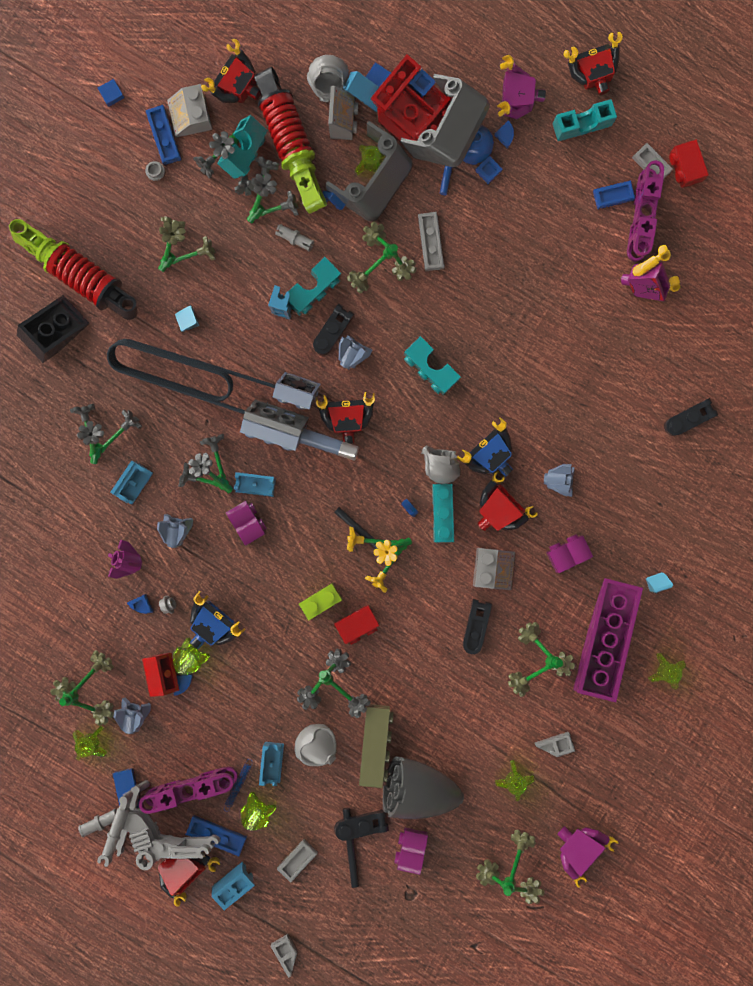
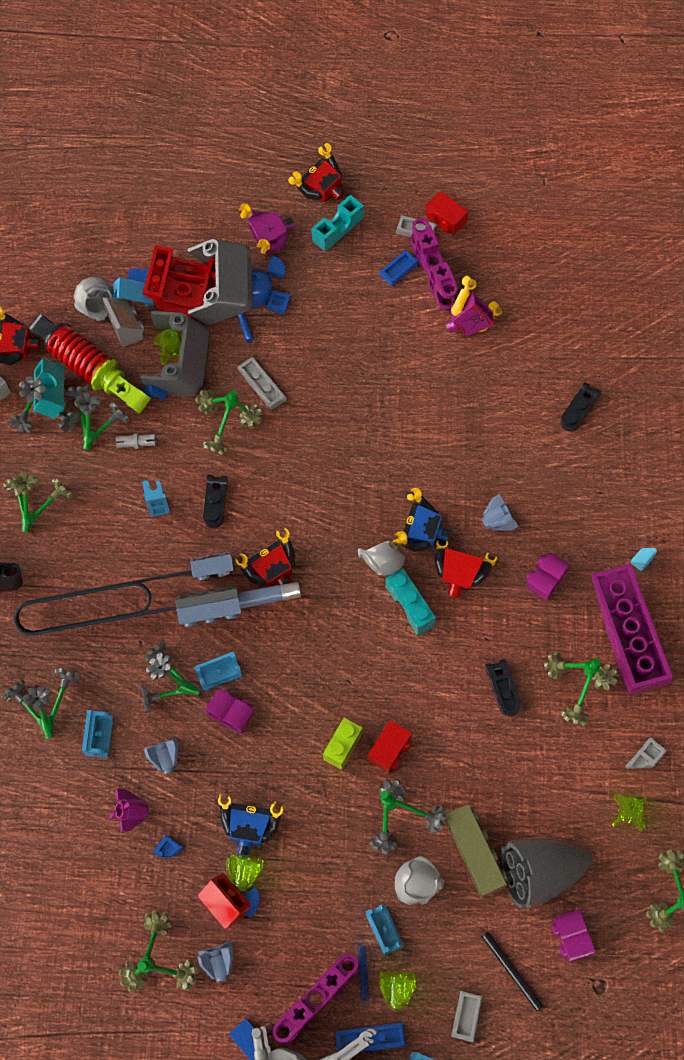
camera: 30 degrees left, 20 degrees down
(88, 744) = (193, 1019): clear neon green brick -> none
(167, 605) = (194, 830): light grey plate -> none
(186, 319) = (73, 560): medium azure slope -> none
(326, 277) = (182, 457): teal arch -> none
(352, 352) = (244, 508): sand blue brick -> none
(357, 528) = (349, 662): black bar -> none
(361, 825) = (508, 941): black plate -> none
(388, 552) = (378, 654): yellow plant -> none
(409, 508) = (376, 614): blue tile -> none
(422, 83) = (180, 263): blue tile -> none
(442, 379) = (338, 489): teal arch -> none
(493, 569) = (486, 626): light grey slope -> none

